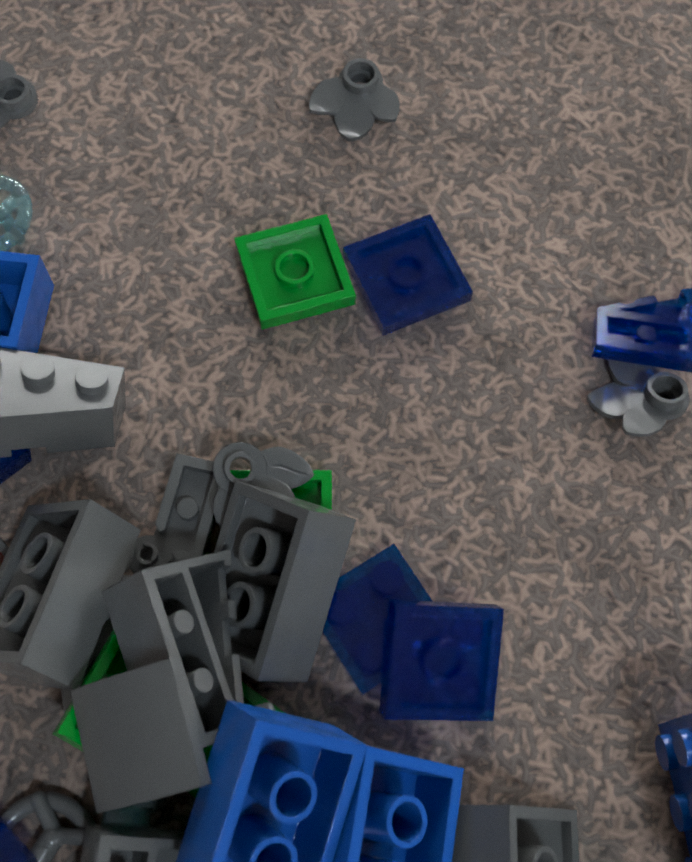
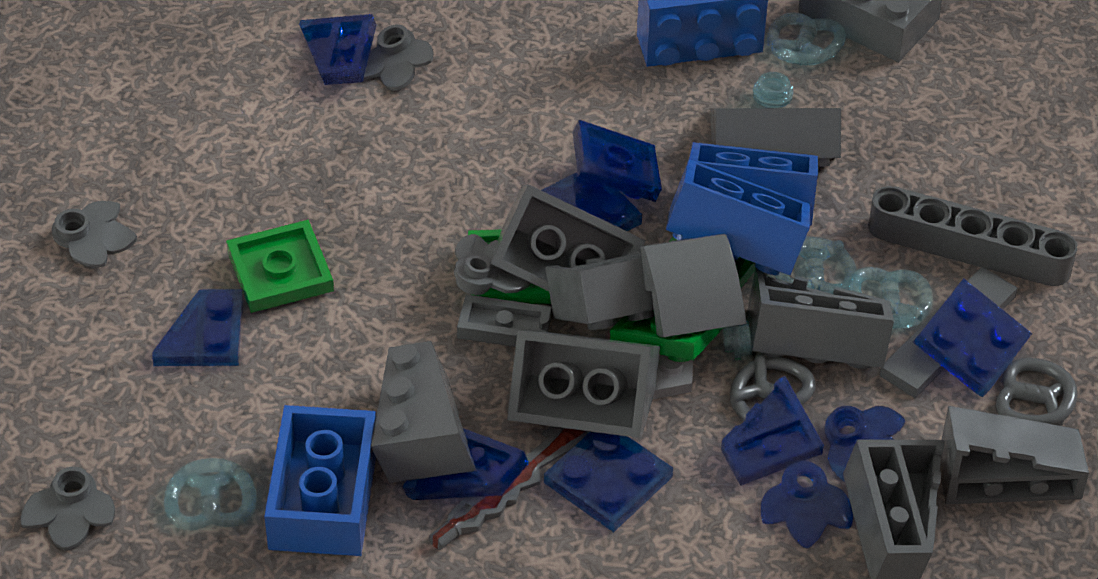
camera: 90 degrees left, 20 degrees down
(210, 205) = (205, 331): none -> clear blue wing
(407, 274) = (284, 191): clear blue plate -> none

